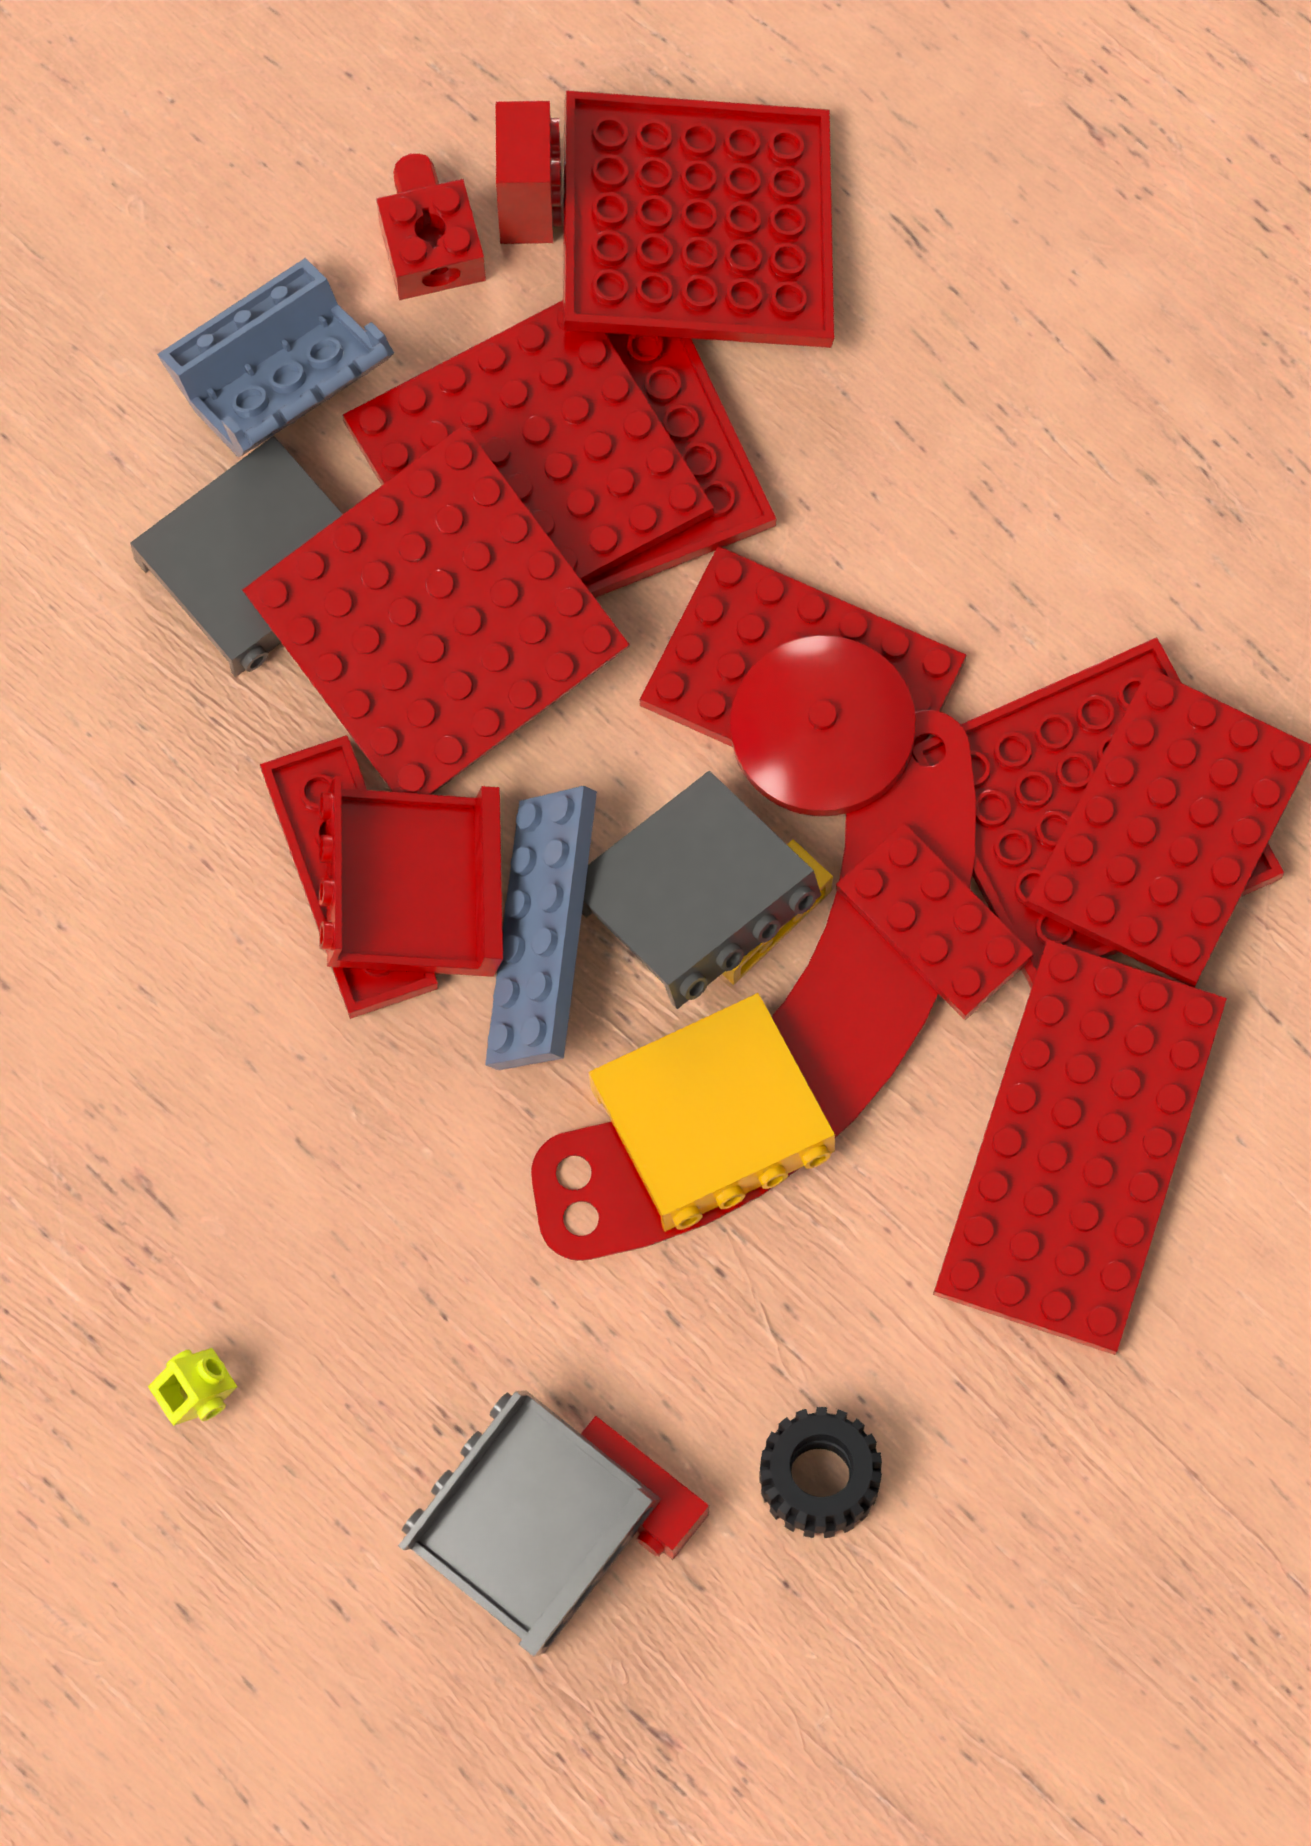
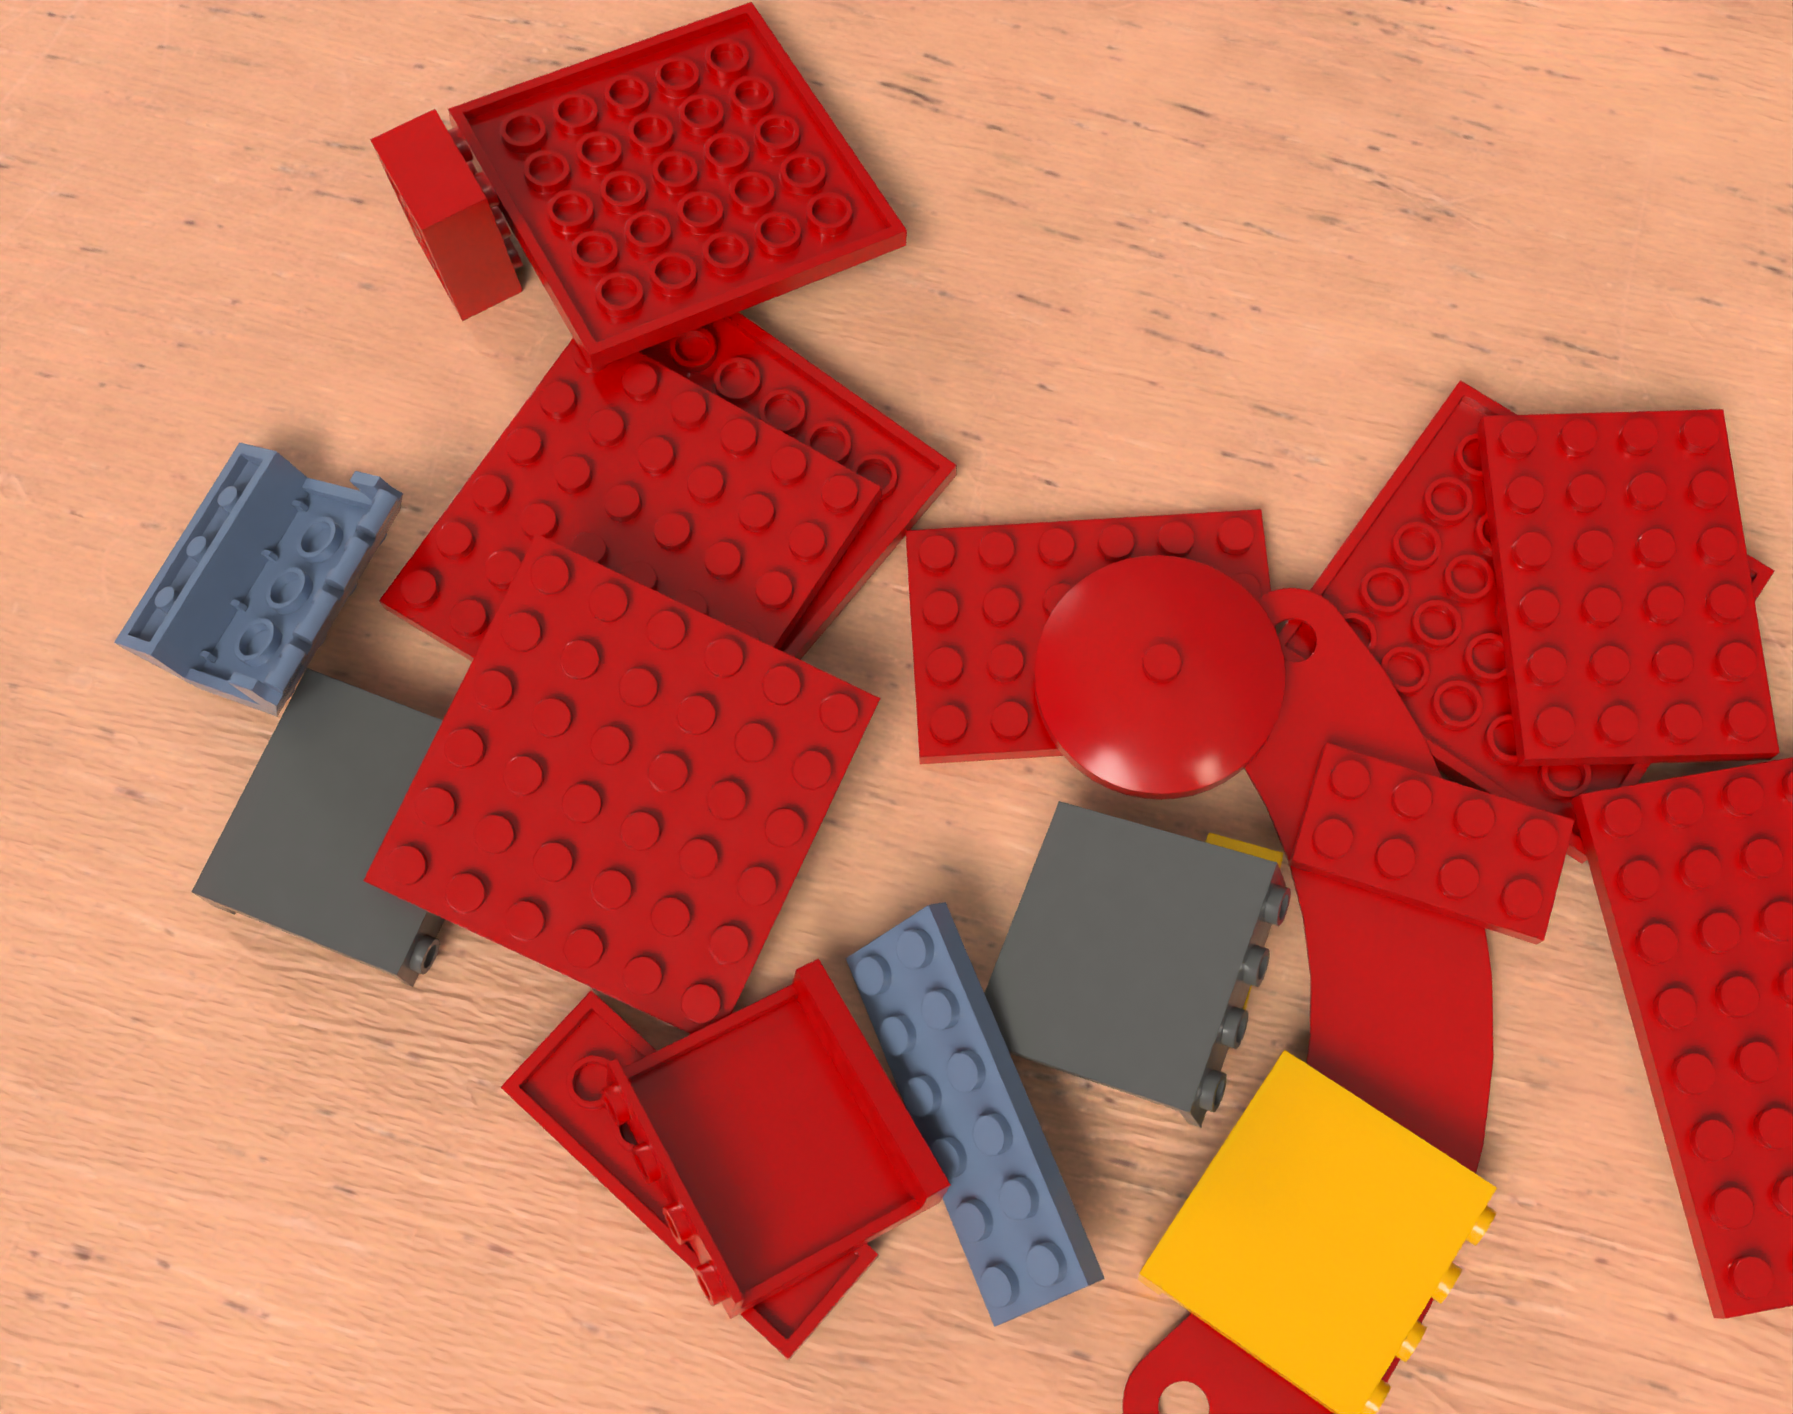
camera: 25 degrees left, 0 degrees up
(429, 231) = (372, 342): red brick -> none

